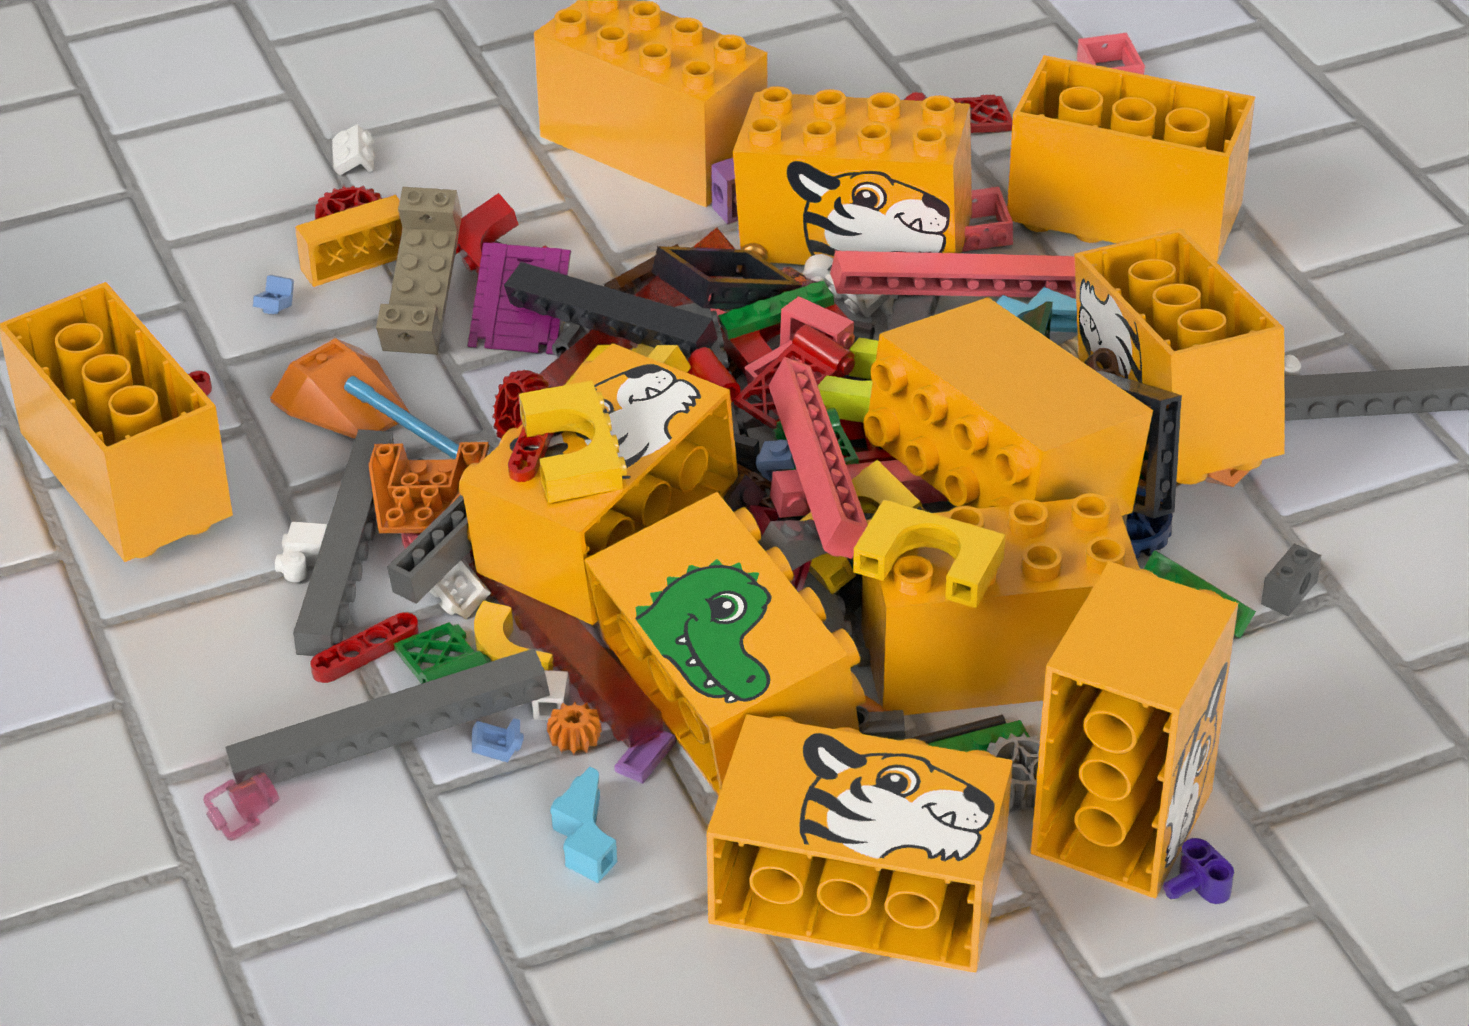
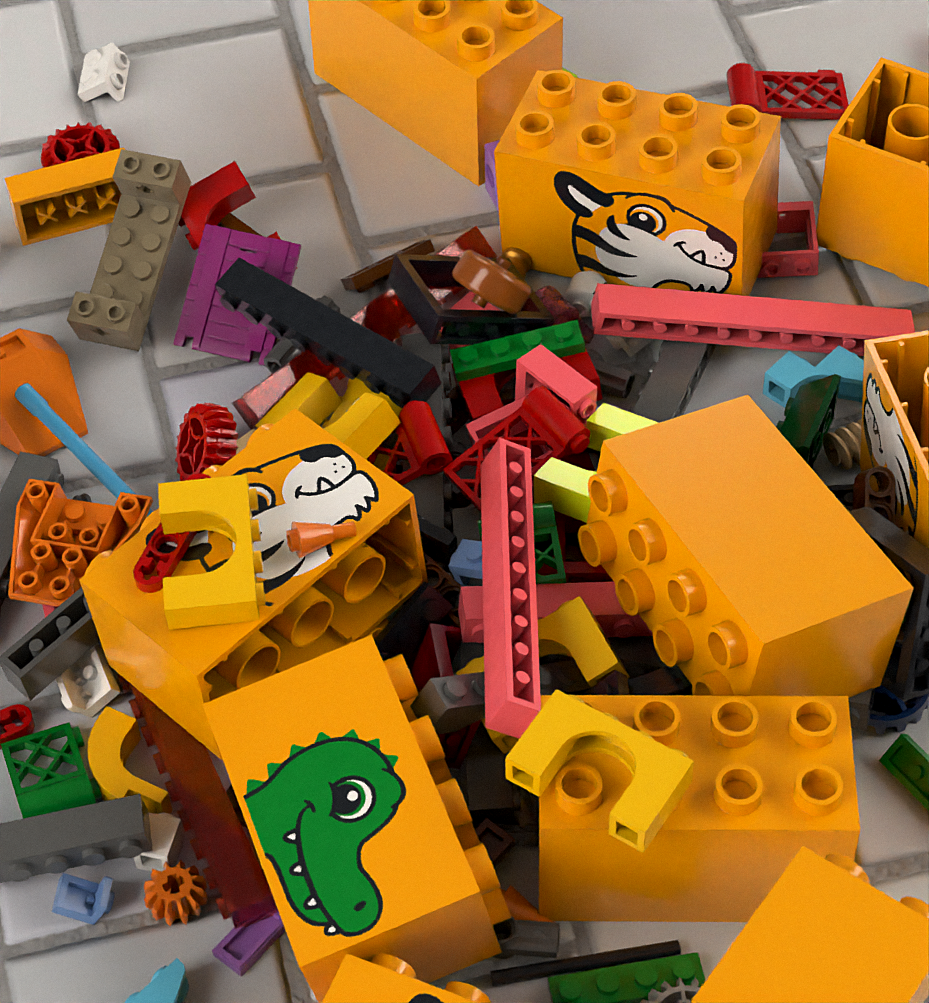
camera: 10 degrees right, 10 degrees up
(650, 425) = (309, 537): none -> orange cone
(746, 255) = (491, 282): none -> dark orange wheel

